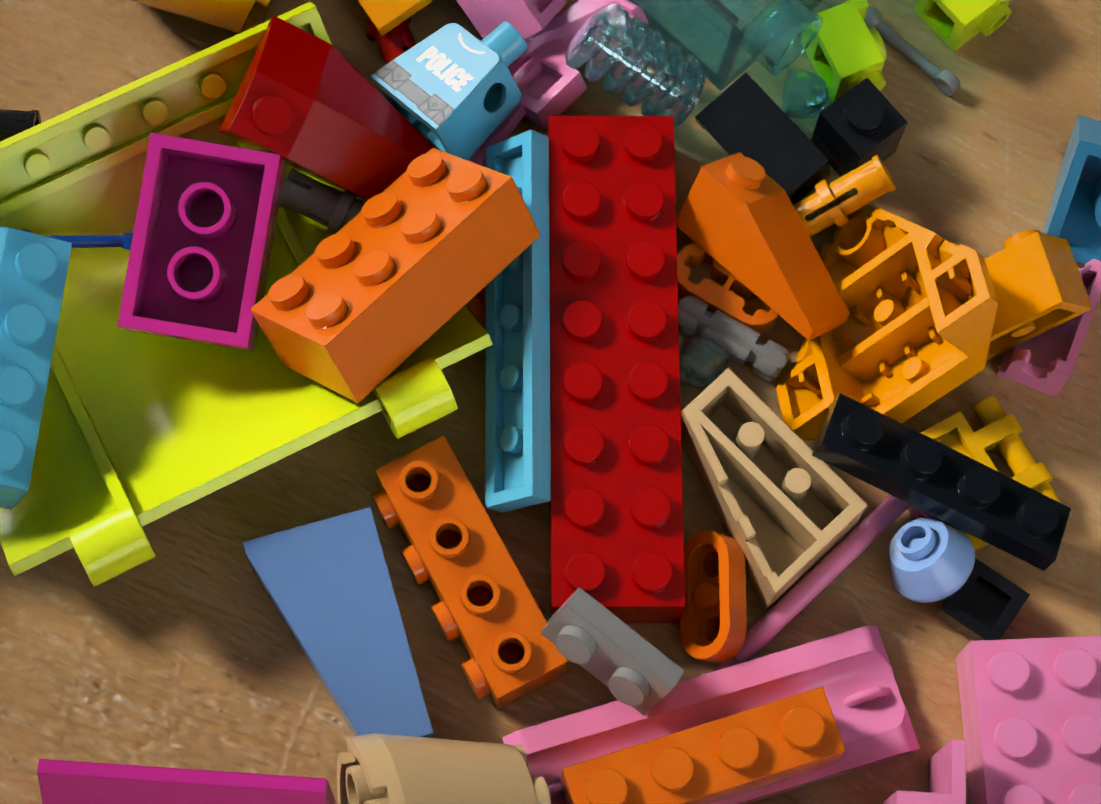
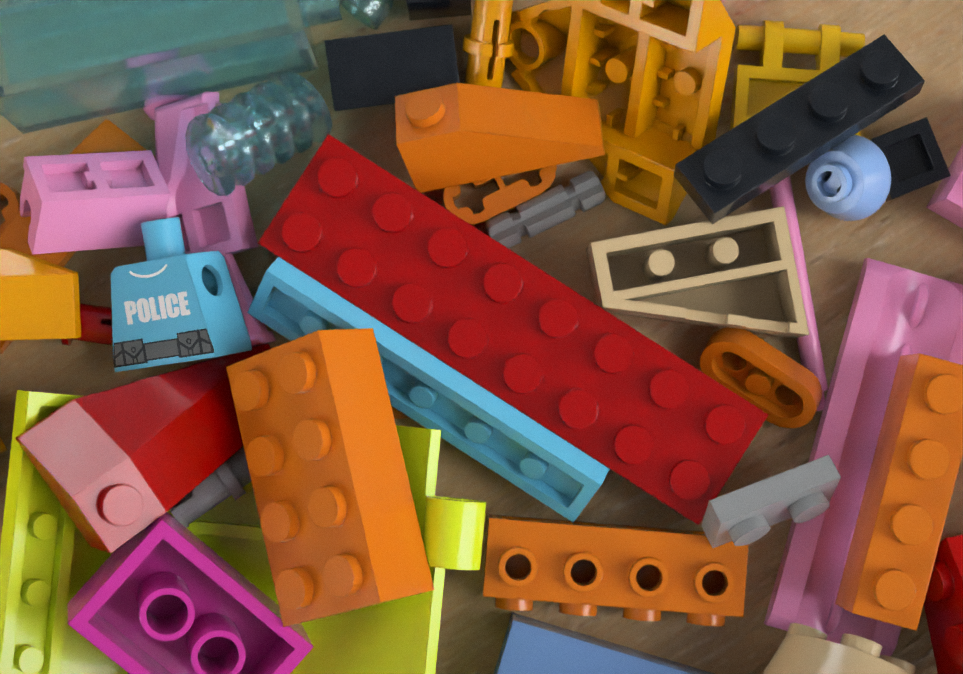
camera: 55 degrees left, 15 degrees up
(701, 361) = (554, 252): clear light blue hinge -> none

